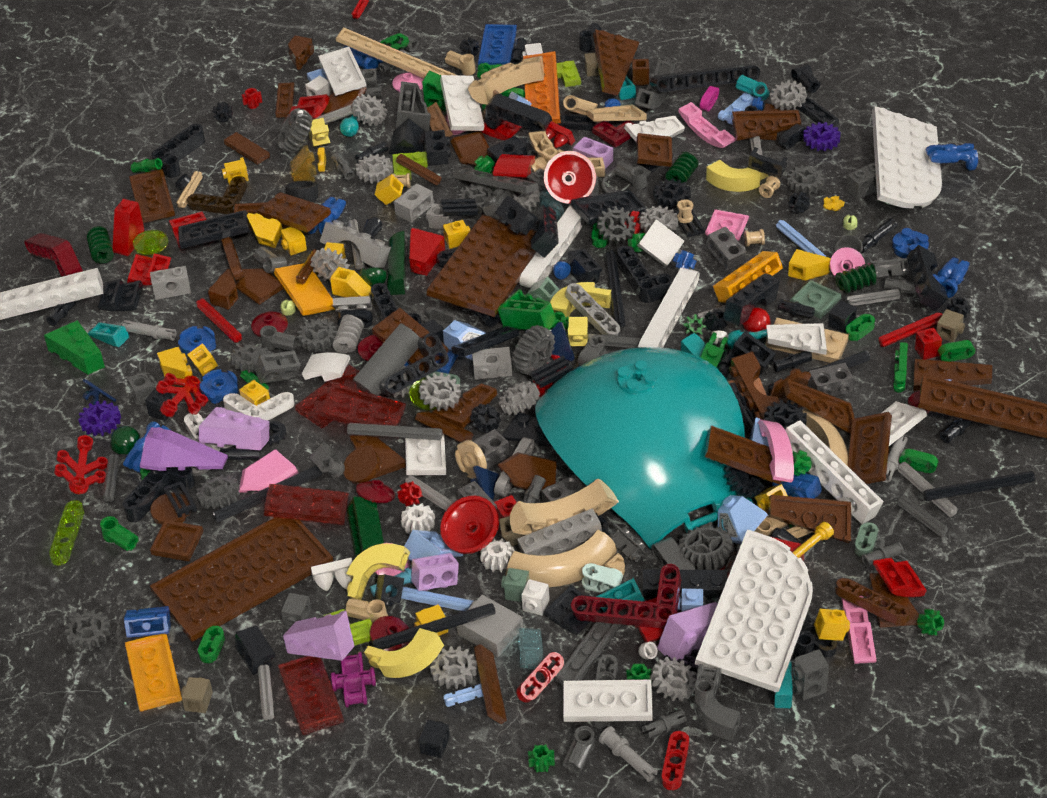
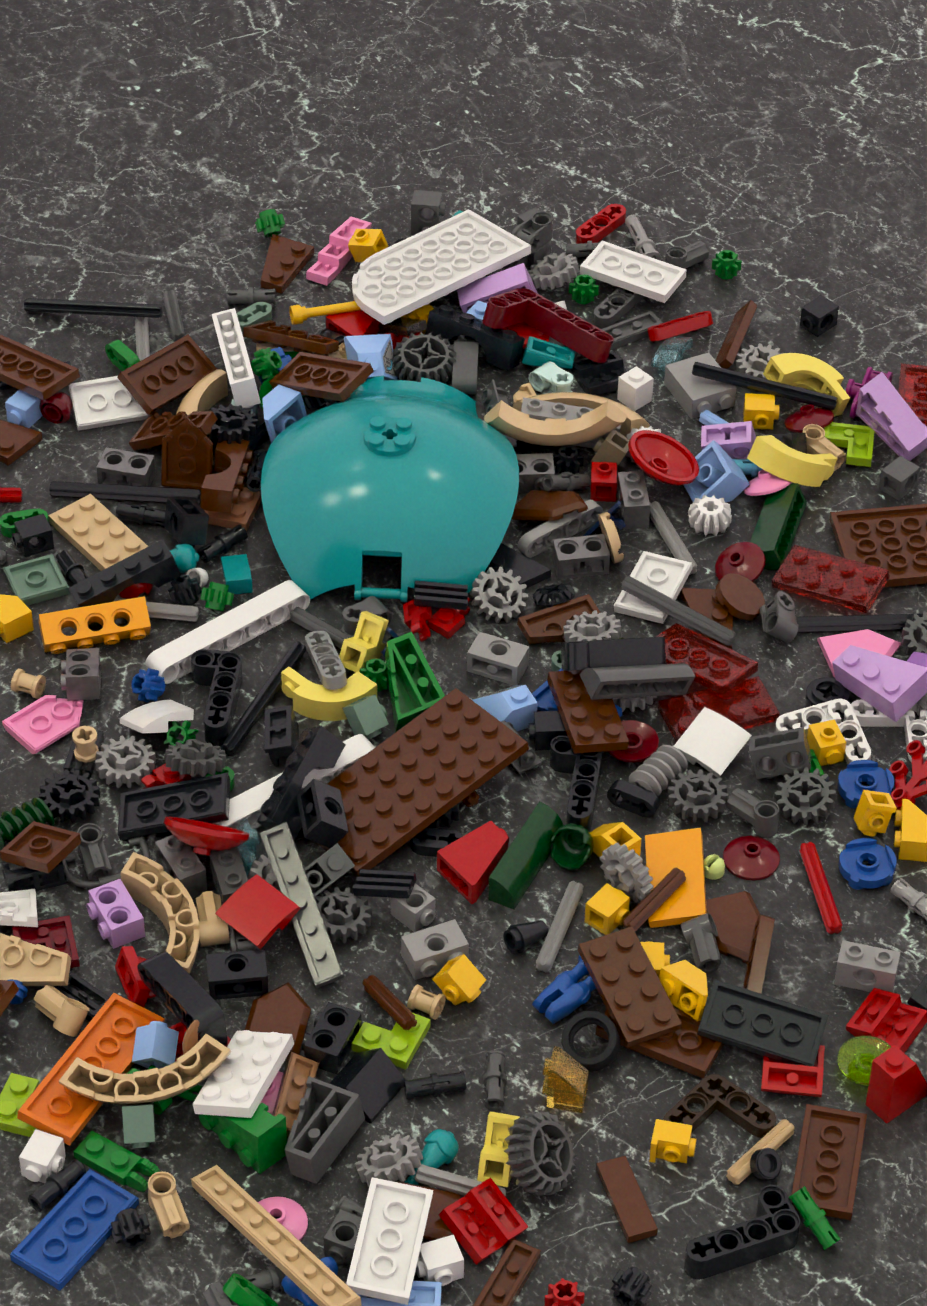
camera: 155 degrees left, 0 degrees up
(224, 291) = (794, 921): reddish brown slope -> none
(322, 159) = (521, 1103): yellow tile -> none
(324, 573) = (832, 499): white tile -> none
(352, 303) = (631, 799): light grey plate -> none
(371, 251) = (555, 889): light grey arch -> none
(374, 168) = (452, 1043): light grey gear -> none
(409, 493) = (702, 542): red gear -> none
(447, 427) = (609, 601): reddish brown tile -> none
(455, 233) = (412, 860): yellow brick -> none
(463, 695) = (782, 344): light blue axle -> none
(484, 164) = (287, 963): green gear -> none
(485, 341) = (496, 674): black tile -> none
(515, 583) = (648, 404): sand green brick -> none
(533, 349) = (444, 628): dark grey gear -> none
(712, 353) = (231, 553): green hinge -> none
(780, 448) = (266, 388): bright pink slope -> none
(798, 336) = (115, 517): white wing -> none
(891, 612) = (310, 249): reddish brown beam -> none
(900, 368) = (33, 452): green hinge -> none
(900, 578) = (261, 265): red slope -> none

